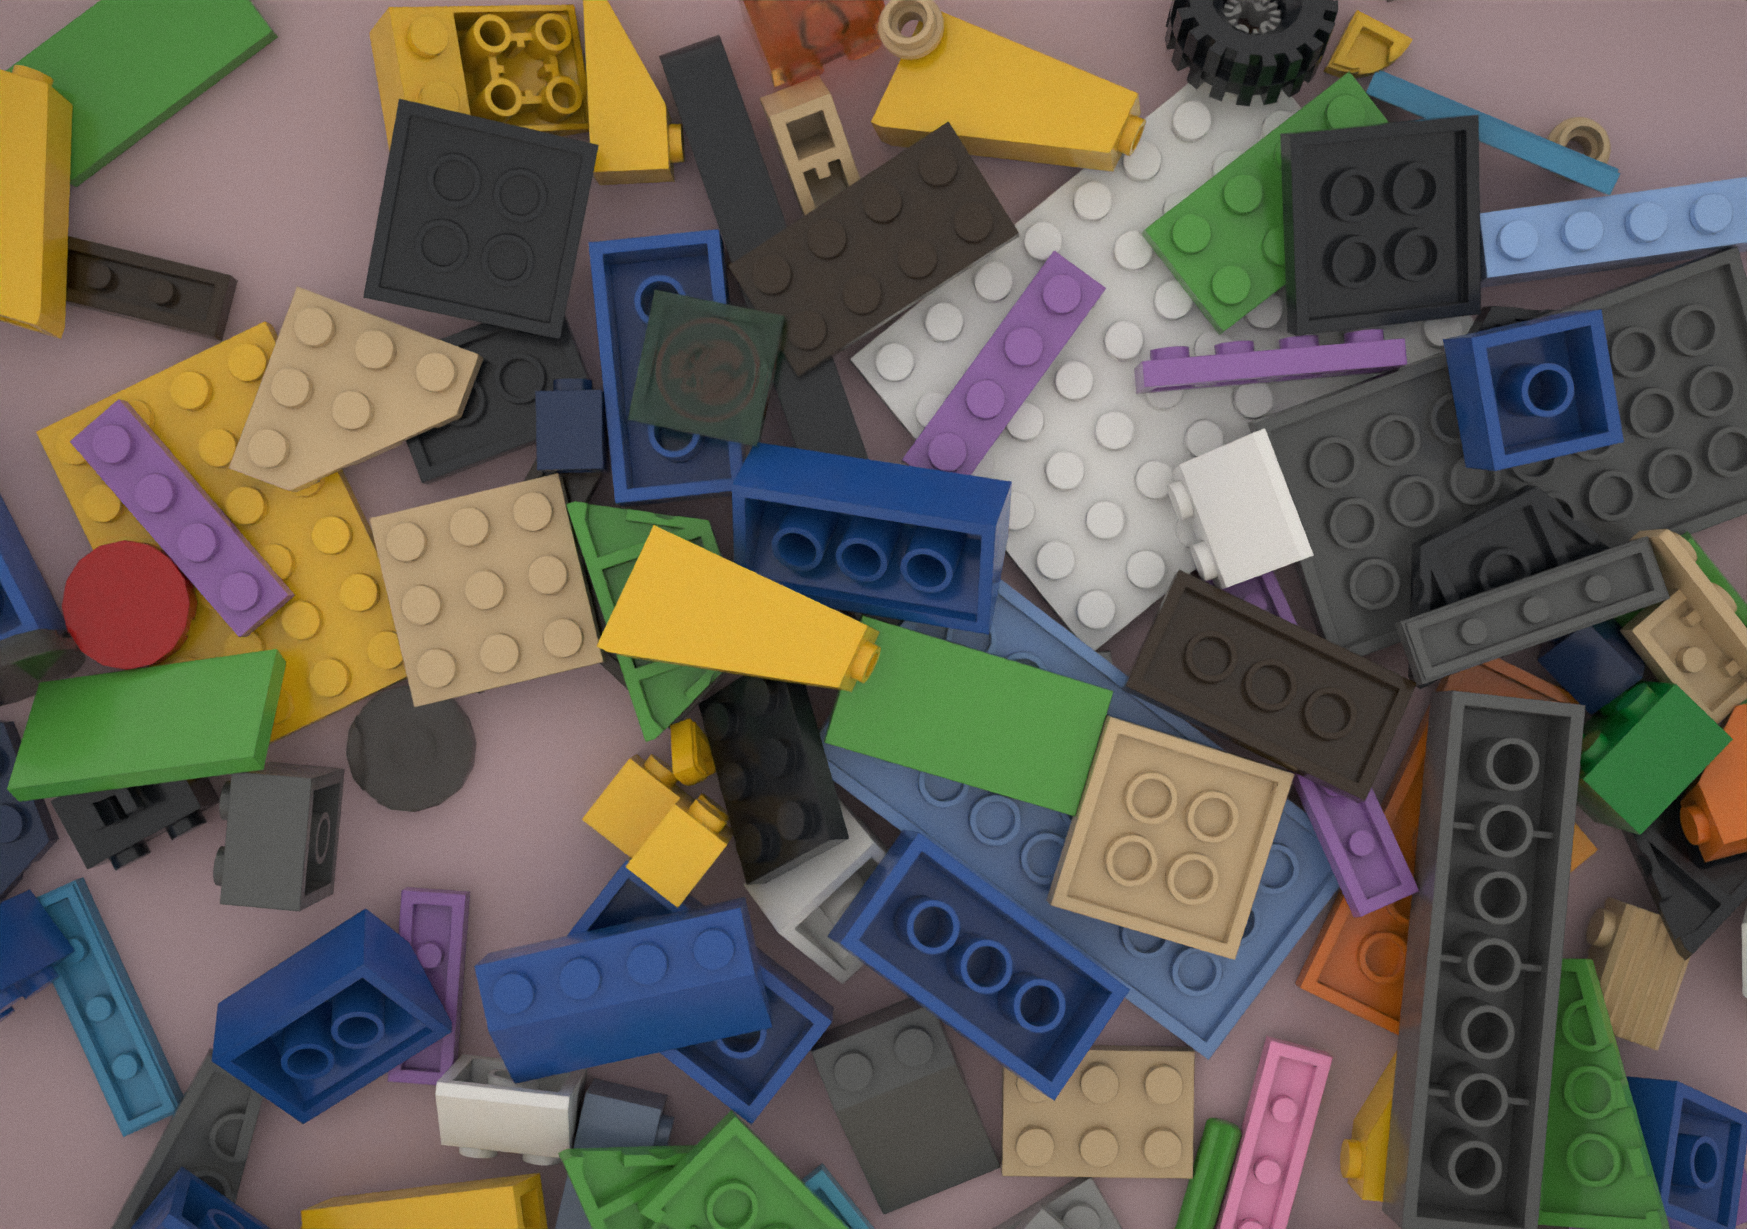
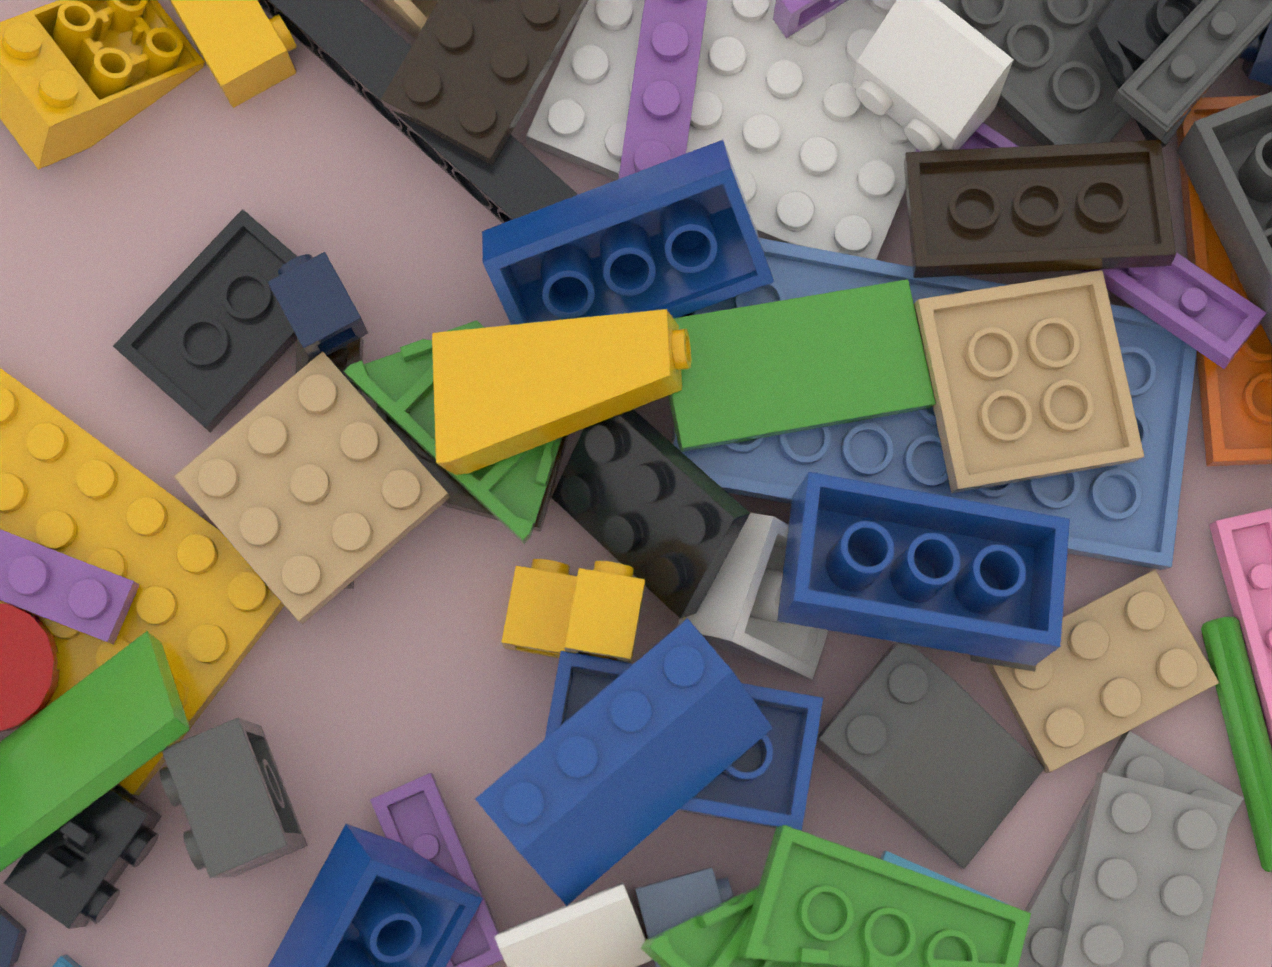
camera: 30 degrees left, 10 degrees down
(346, 392) = (98, 381): tan plate -> none
(410, 753) = (313, 673): clear smoke tile -> none
(480, 219) = (144, 165): black plate -> none
(647, 460) = (375, 214): blue brick -> none
(690, 753) = (568, 535): yellow tile -> none
(707, 368) = (408, 187): clear green tile -> none

